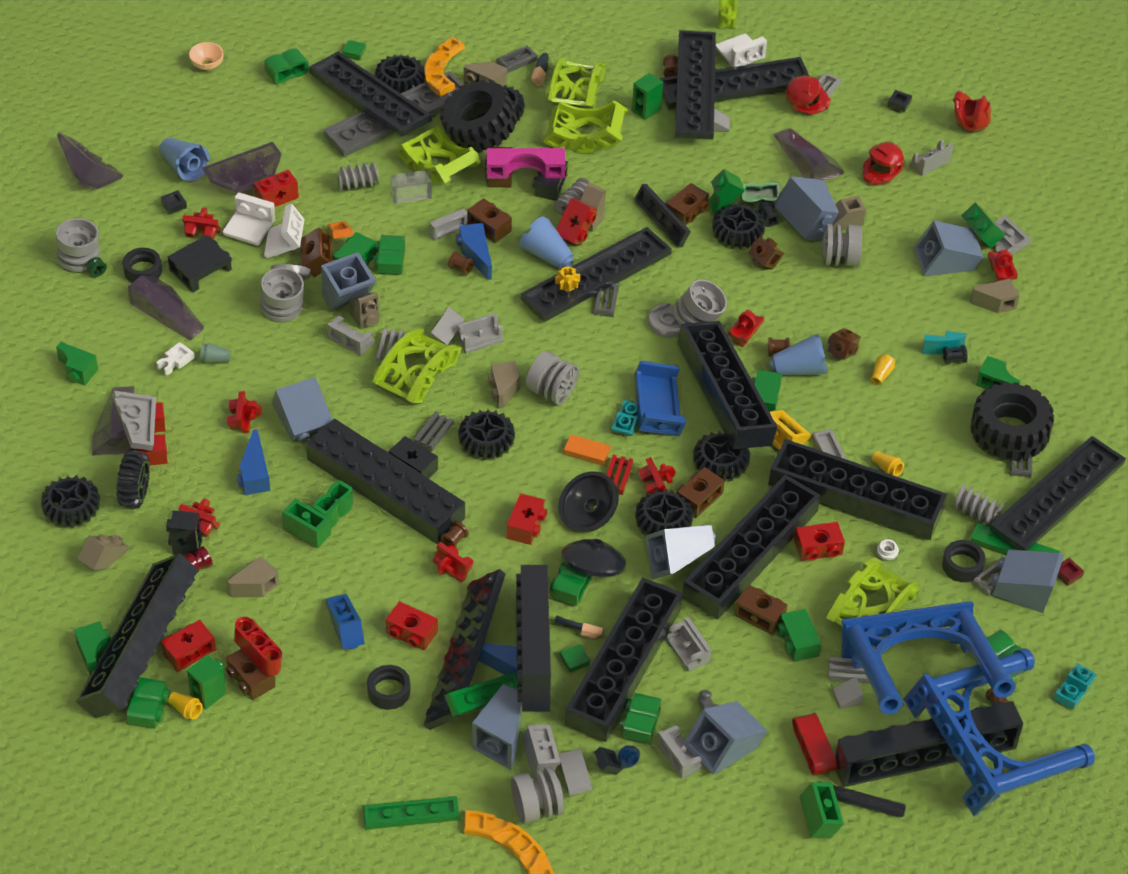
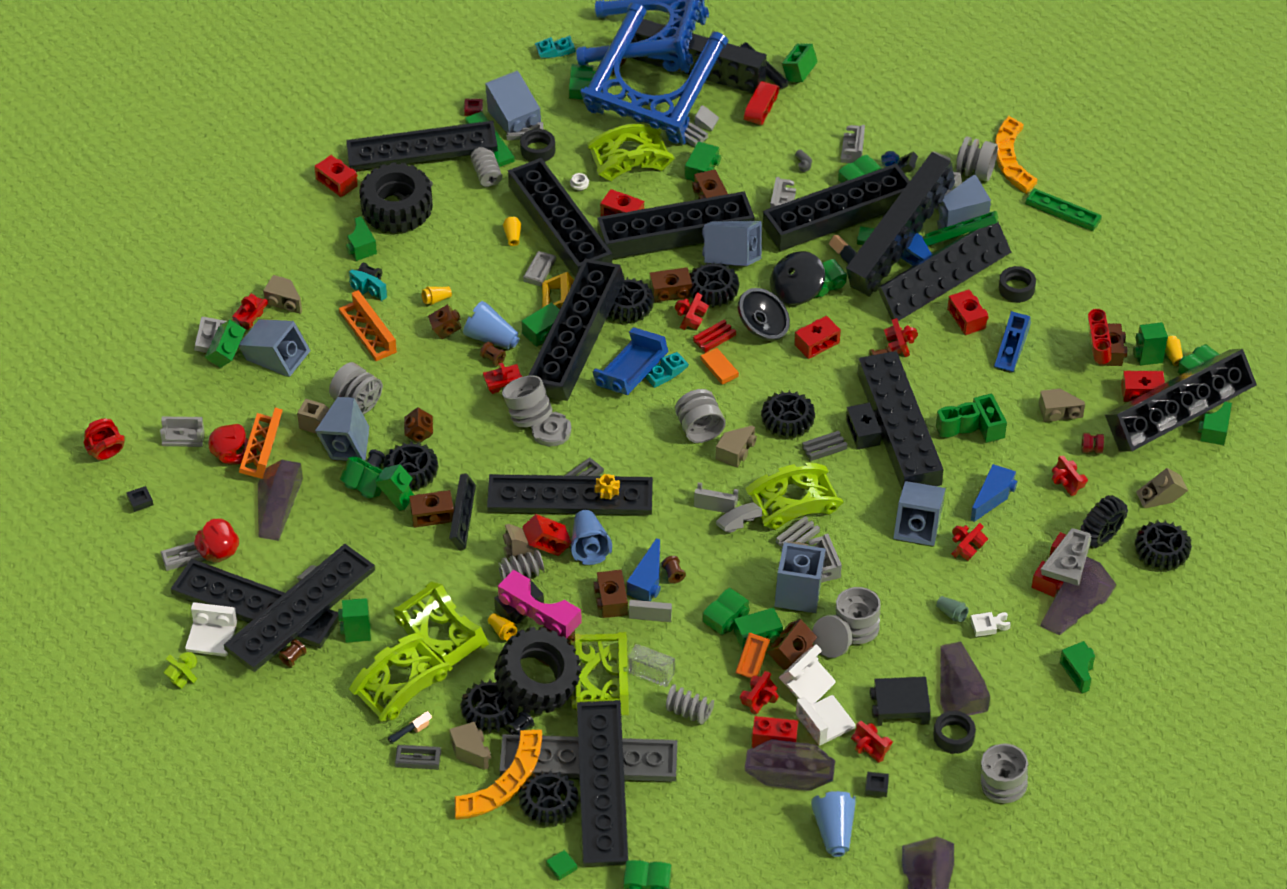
camera: 140 degrees left, 0 degrees up
(185, 532) = (1092, 456): black brick -> none
(314, 213) = (762, 692): none -> red hips
(724, 735) = (817, 129): sand blue slope -> none
(862, 181) = (269, 434): none -> orange fence
(900, 314) = (373, 322): none -> orange fence
(1090, 421) = (336, 175): none -> red brick

